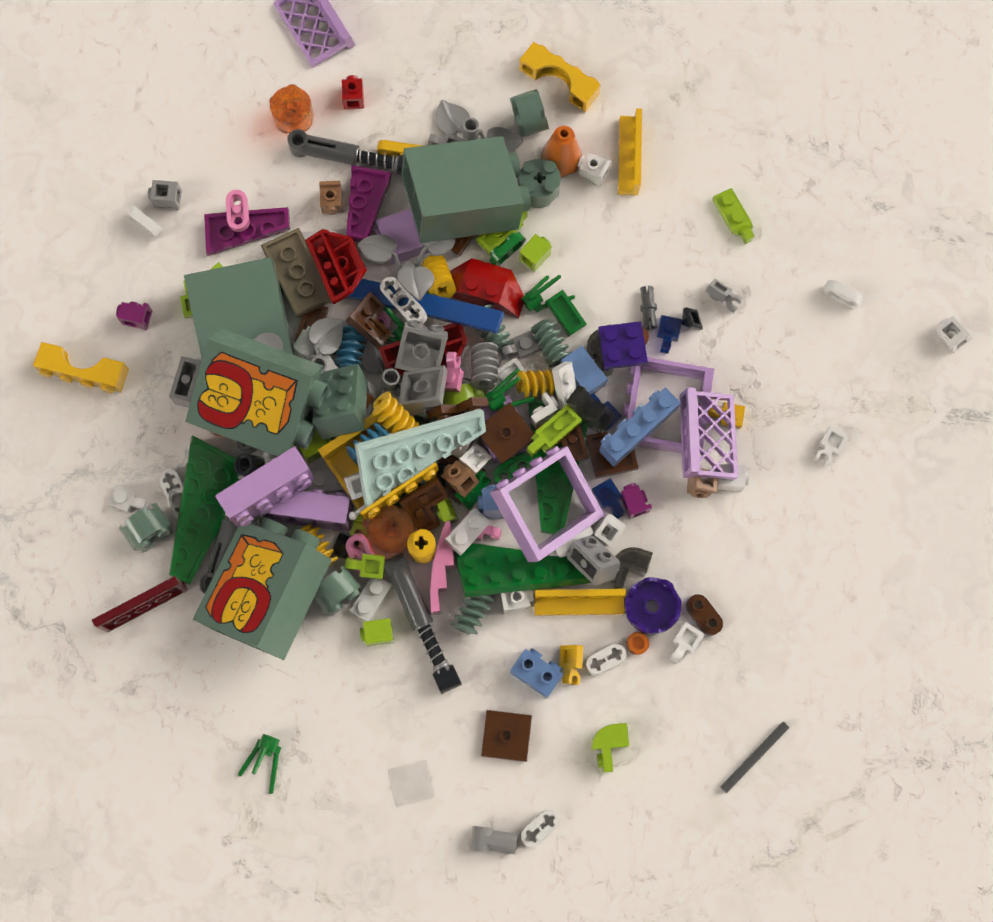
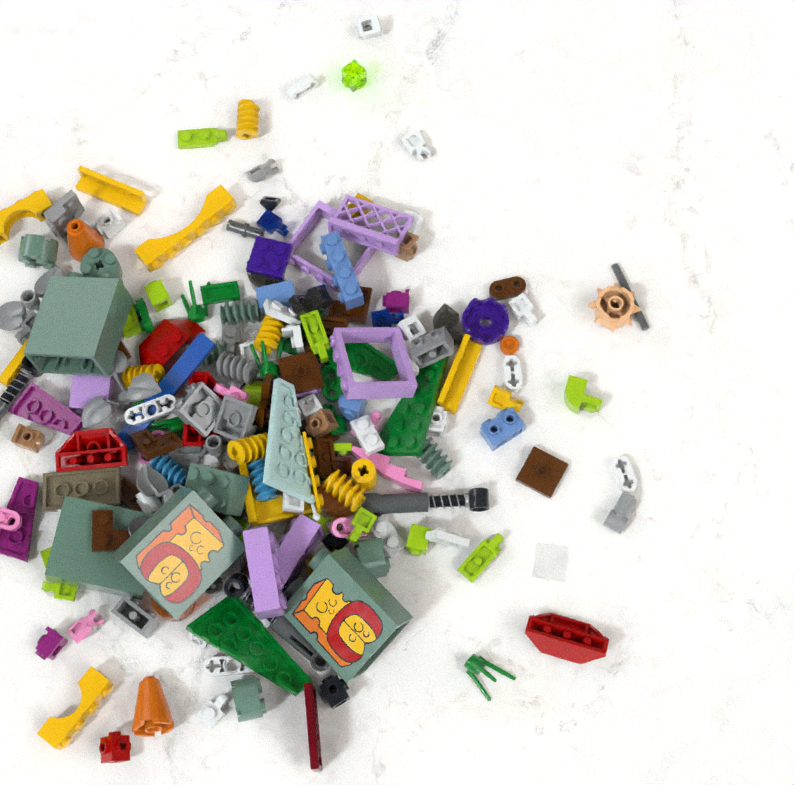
camera: 60 degrees left, 5 degrees down
(54, 421) = (115, 748): none -> red brick
(105, 438) = (151, 709): none -> orange cone
(160, 336) = (82, 627): none -> bright pink plate
(178, 610) = (337, 698): none -> black brick
(245, 313) = (103, 536): none -> reddish brown plate
(331, 832) = (566, 638): none -> red wedge
(384, 706) = (481, 558): none -> lime hinge
(387, 653) = (452, 540): none -> white plate
(391, 532) = (344, 490): none -> yellow piece
(581, 118) = (62, 213): none -> light grey plate
(659, 265) = (157, 251): none -> yellow arch
(742, 739) = (605, 309): none -> light nougat brick
(776, 252) = (247, 119): none -> yellow piece
(882, 342) = (354, 76): none -> clear neon green brick

